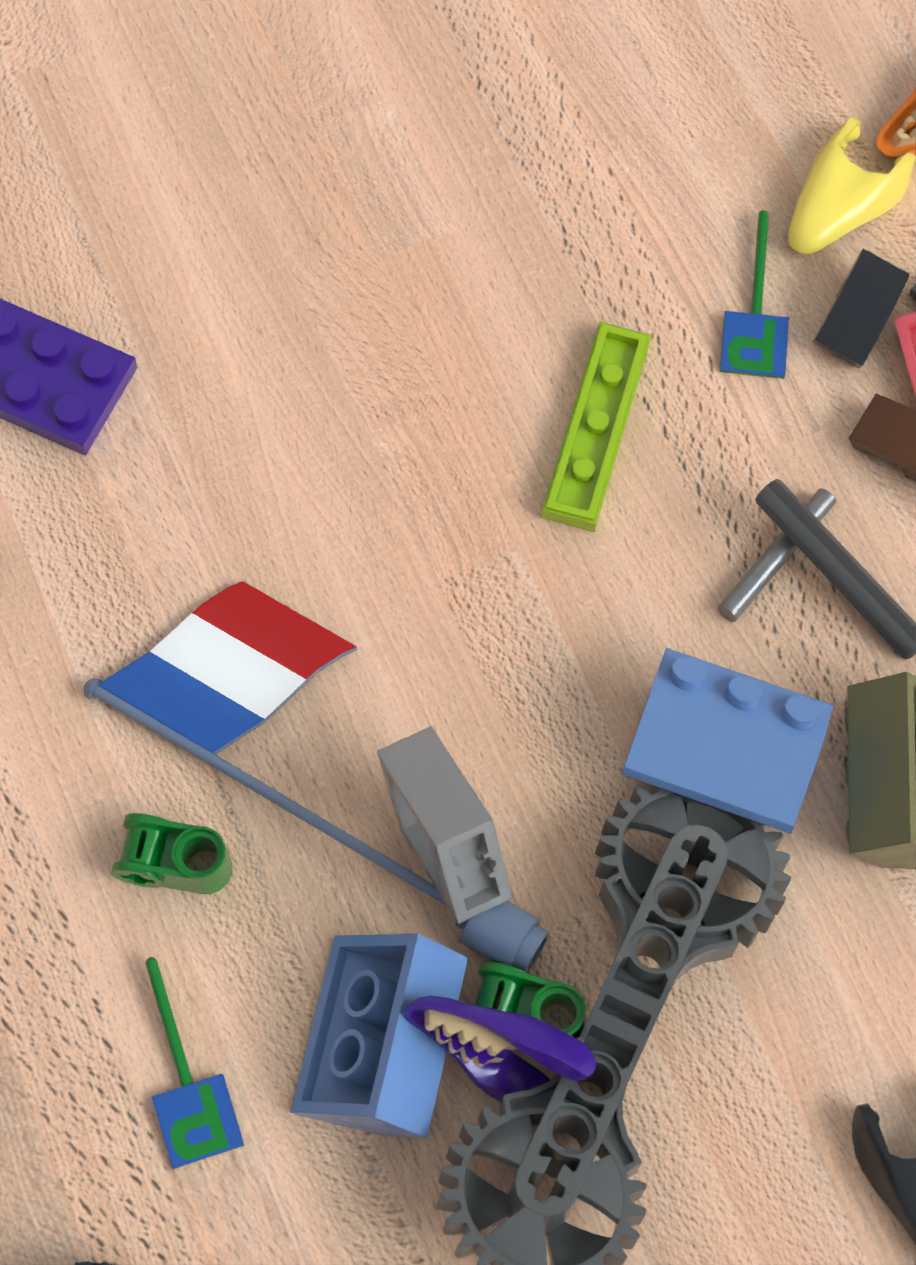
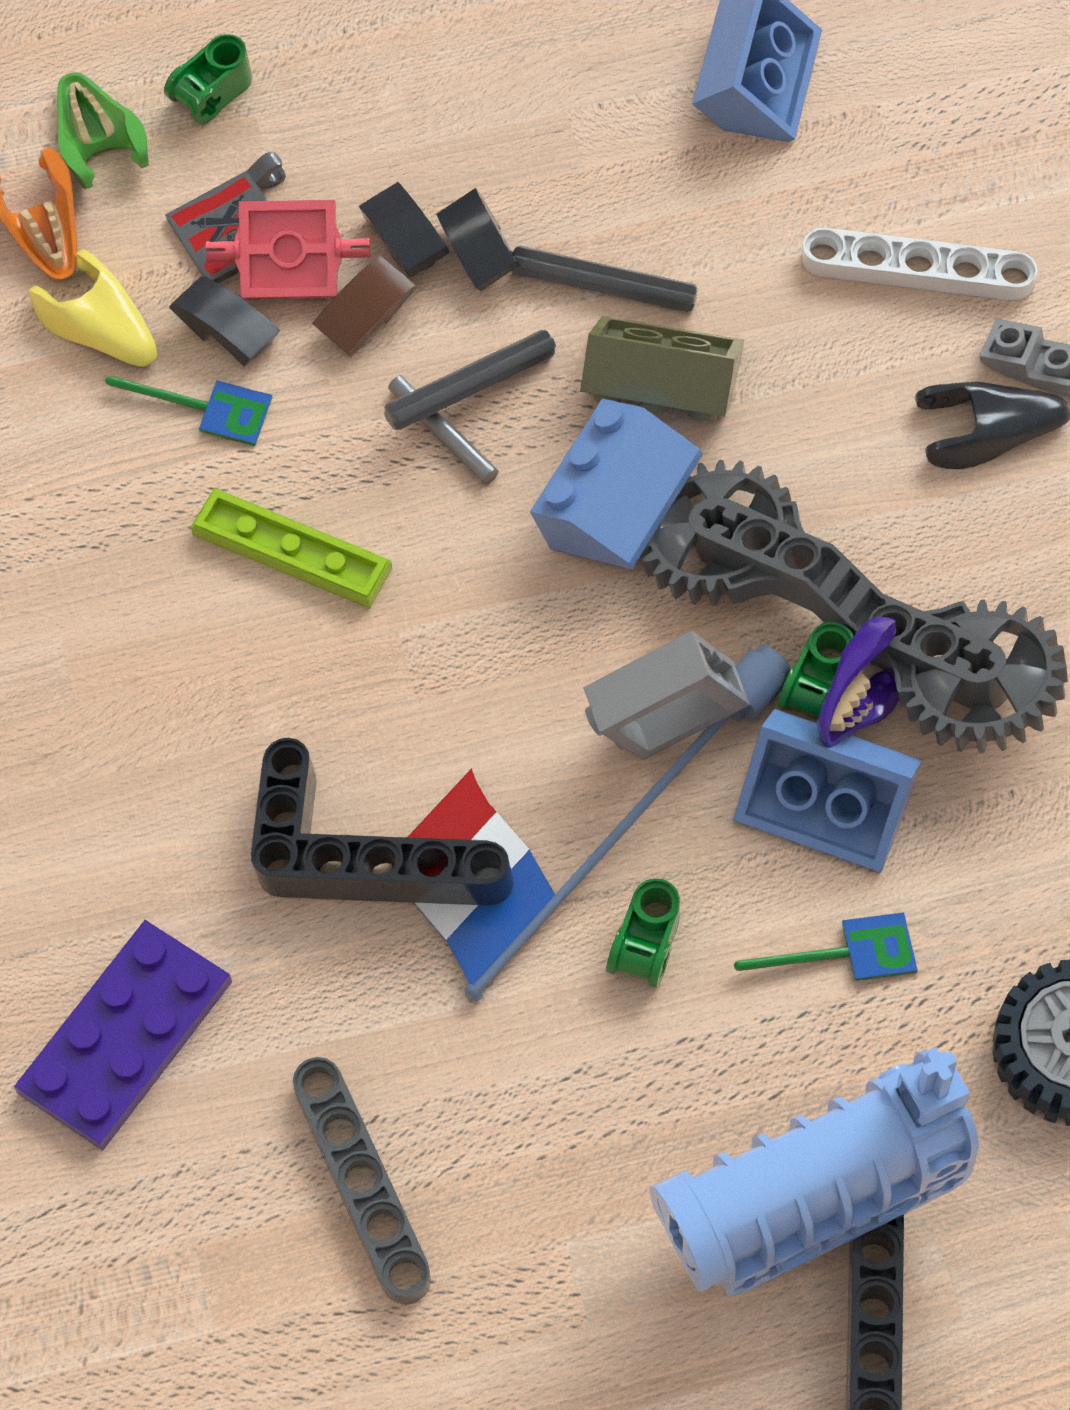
camera: 75 degrees left, 5 degrees down
(218, 541) = (357, 853): none -> black beam

